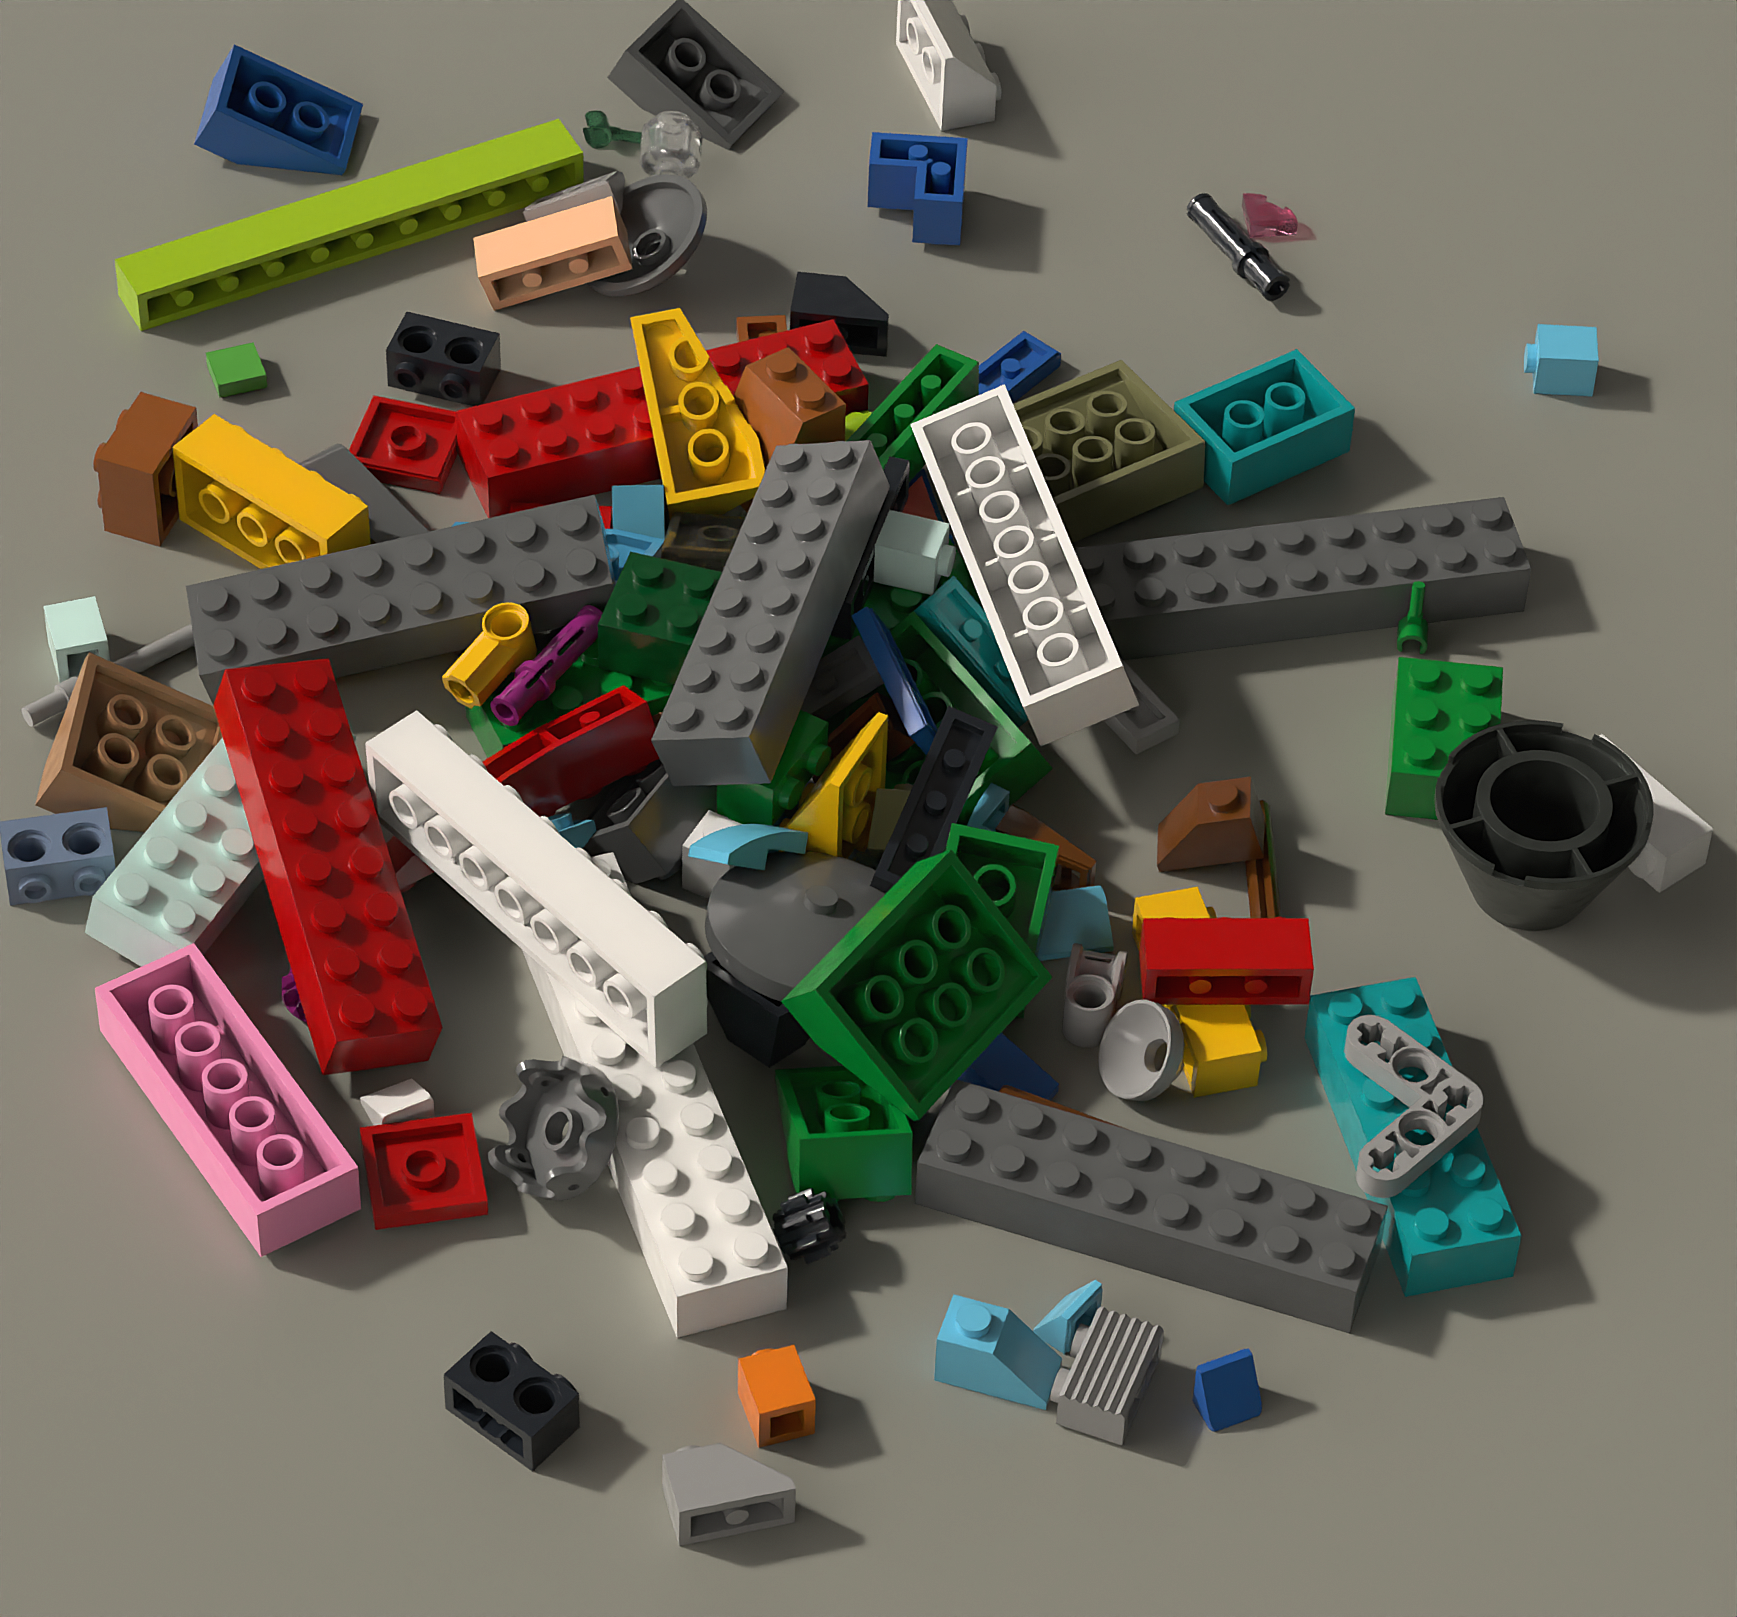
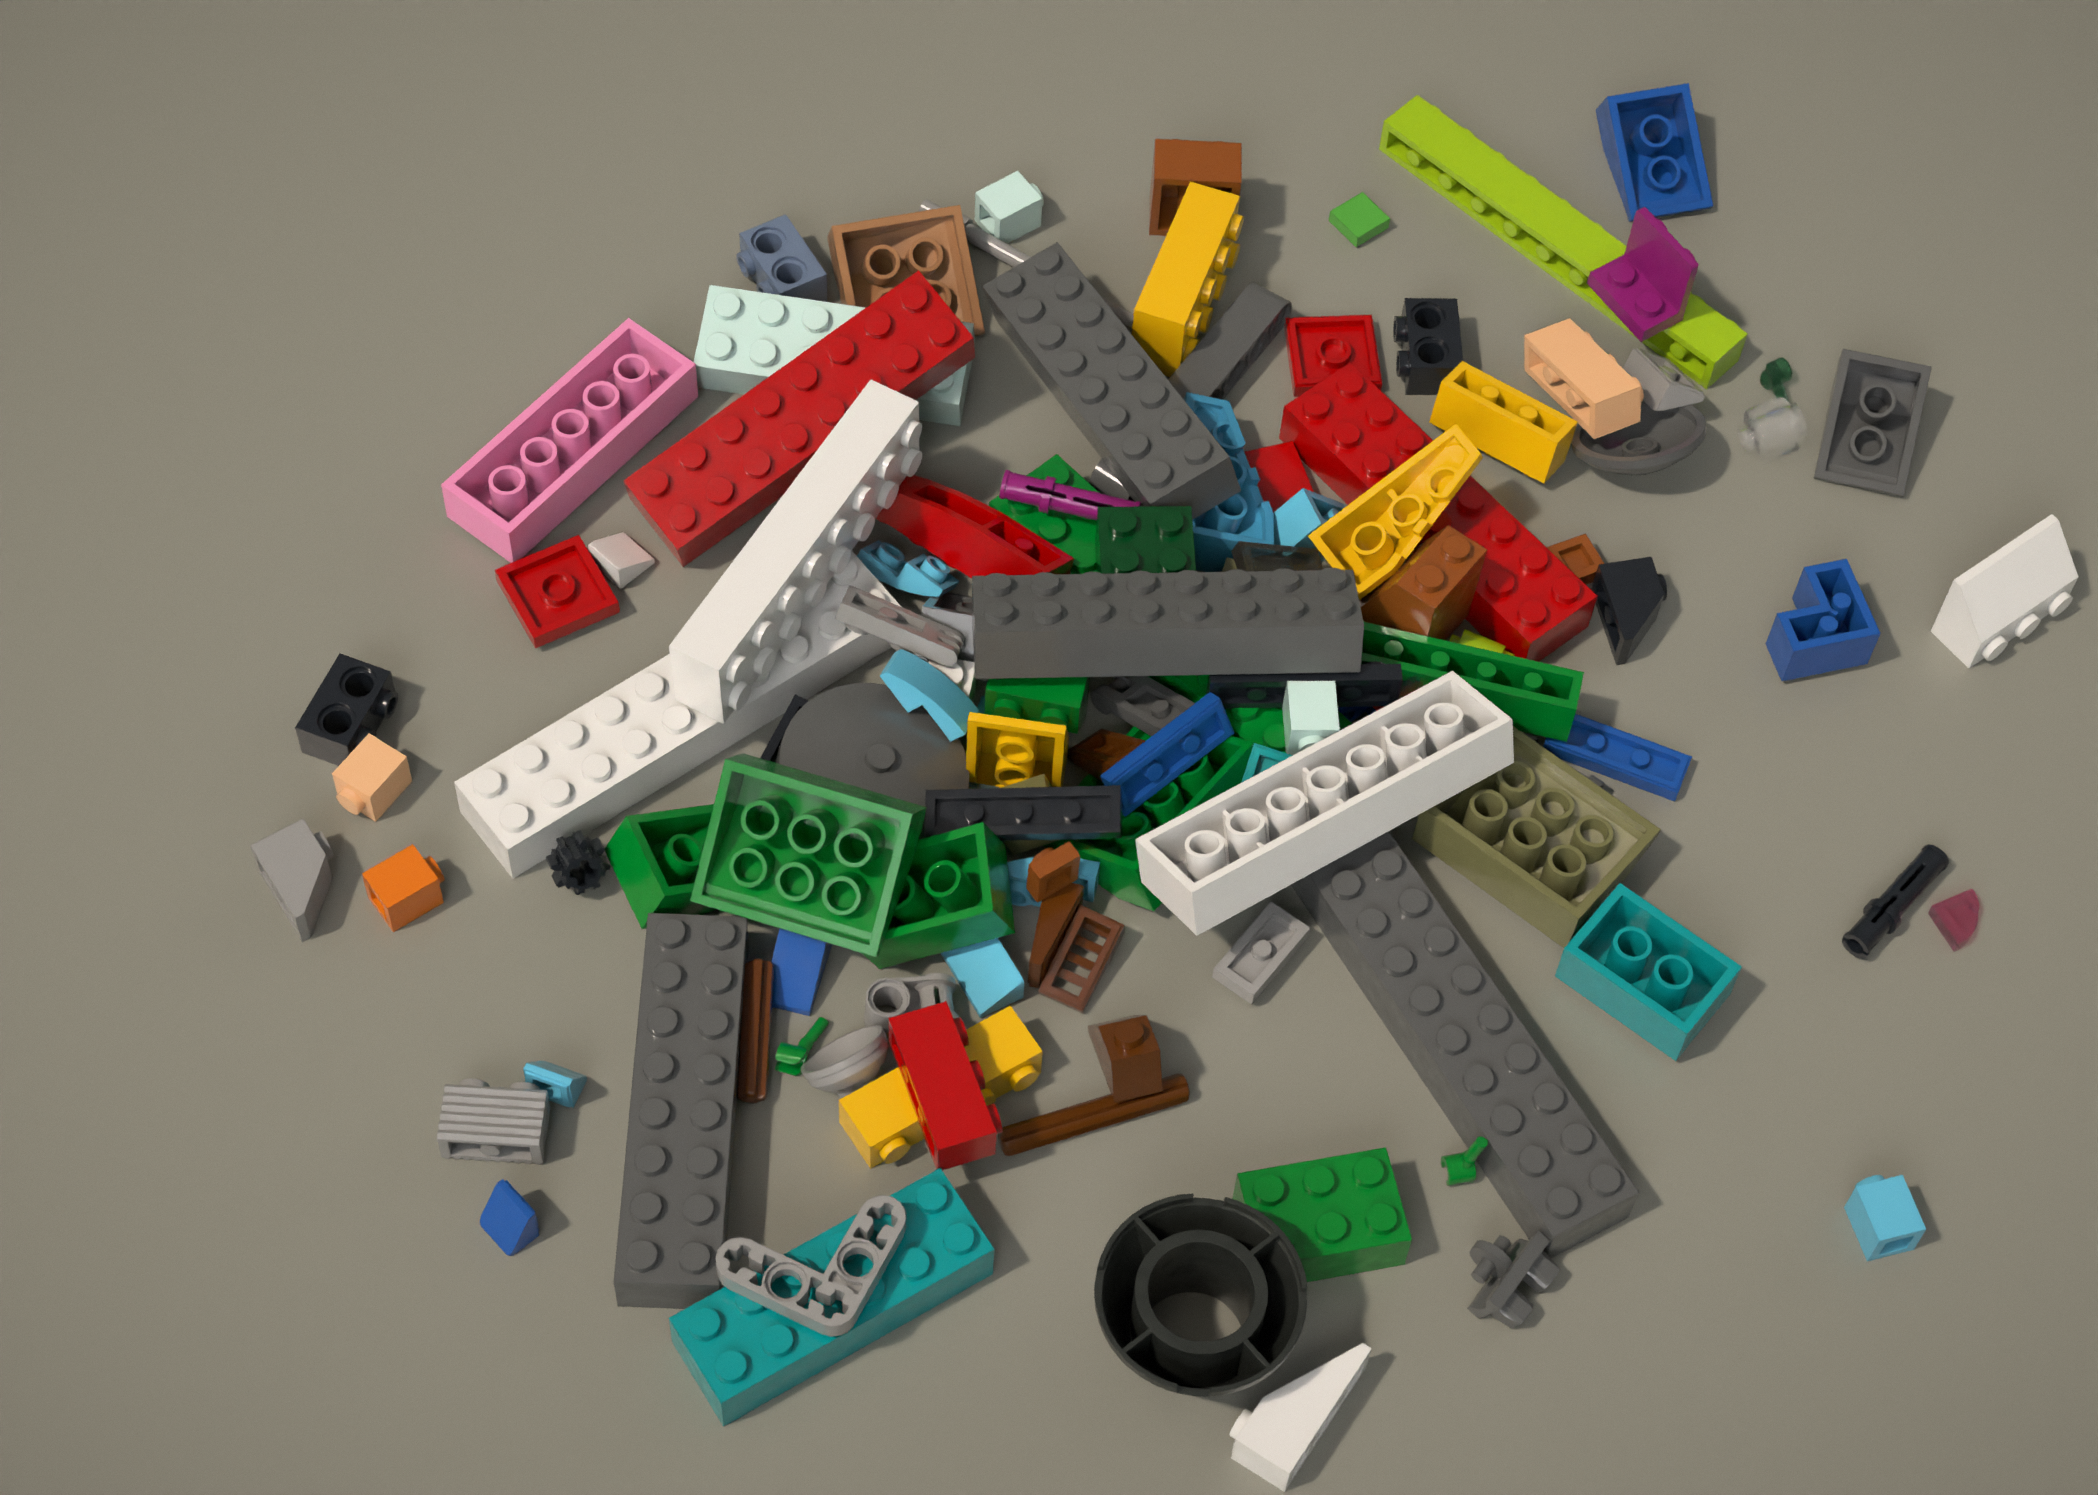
camera: 70 degrees right, 10 degrees up
(474, 148) = (1648, 282): none -> magenta bracket
(493, 655) = (1071, 457): yellow piece -> none
(536, 1118) = (610, 664): dark grey plate -> none
(573, 329) = (1504, 421): none -> yellow brick
(615, 1394) = (371, 778): none -> light nougat brick
(656, 845) = (900, 627): none -> light grey hinge
(994, 1354) = (491, 1028): medium azure slope -> none
(1002, 805) = (1052, 871): none -> dark orange plate
(1078, 824) = (1099, 925): none -> reddish brown slope
(1109, 1105) = (792, 1057): none -> green hand
(1539, 625) = (1522, 1262): none -> dark grey hips

